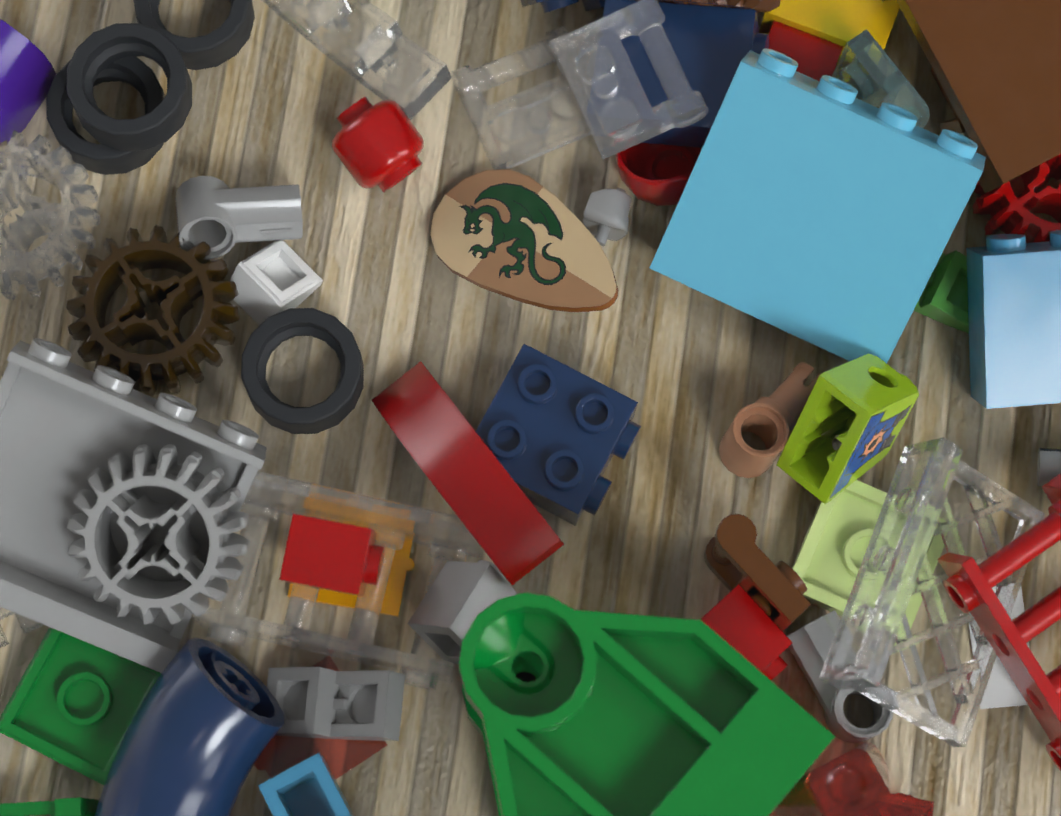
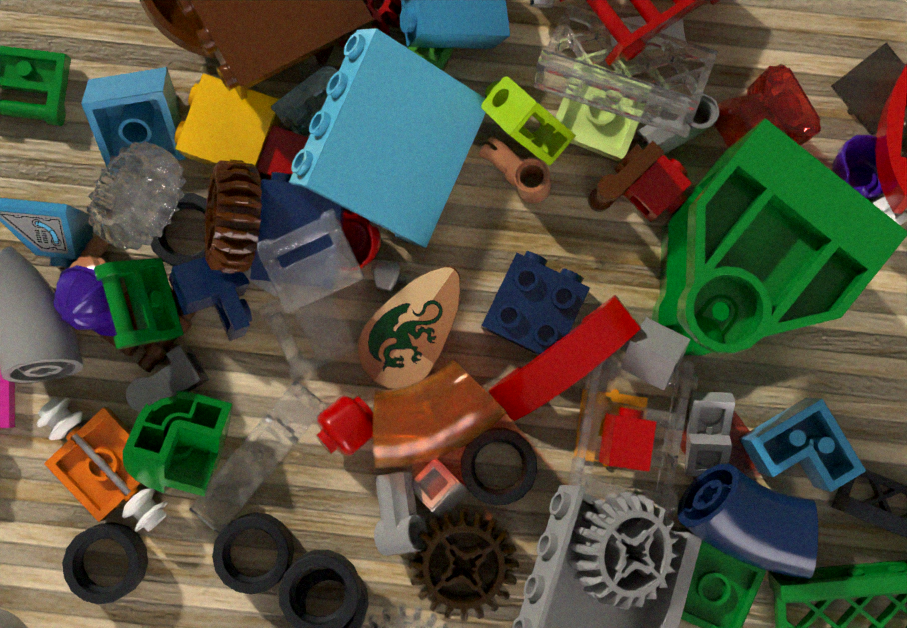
camera: 85 degrees left, 10 degrees up
(384, 261) = (431, 417): none -> clear orange brick

